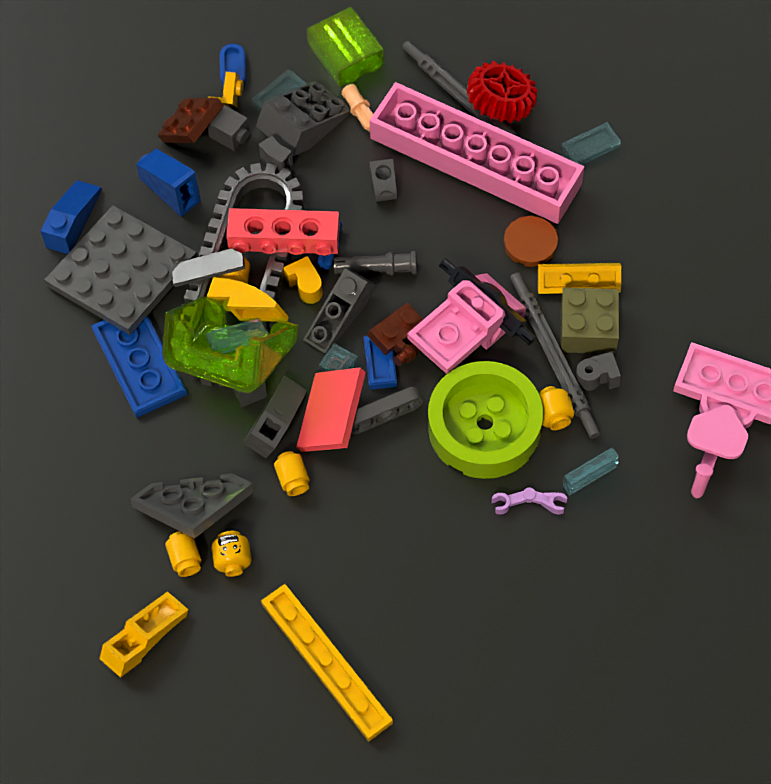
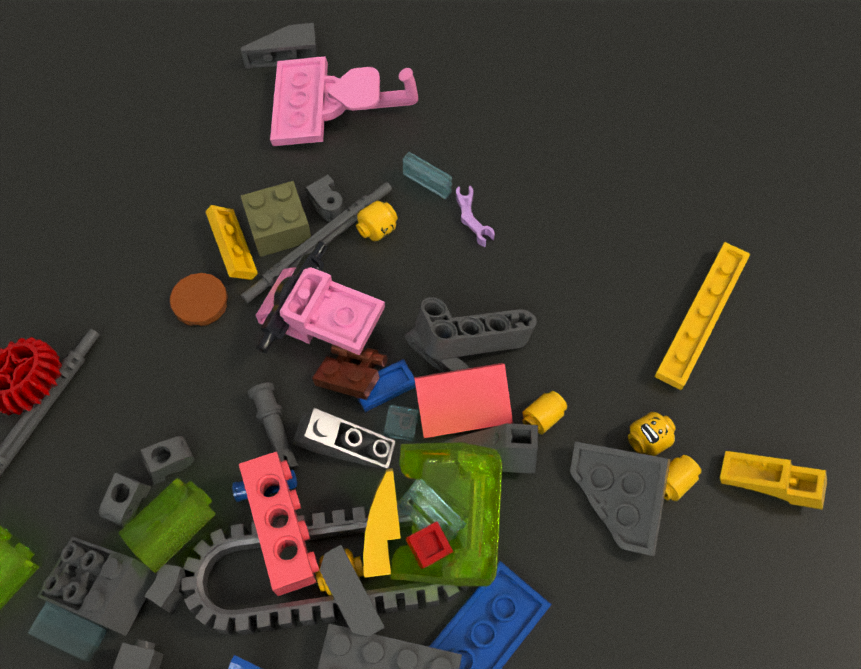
camera: 115 degrees left, 0 degrees up
(209, 319) = (429, 545): none -> red tile
(306, 278) = (319, 487): yellow leg -> none
(322, 162) = (167, 523): none -> clear neon green brick
(358, 105) = (68, 525): light nougat axle -> none
(363, 145) = (122, 499): none -> dark grey leg
(390, 442) = (470, 335): none -> dark grey beam
(476, 152) = (104, 381): bright pink brick -> none
(490, 393) = (418, 243): lime brick -> none
(591, 144) = (67, 284): clear light blue tile -> none

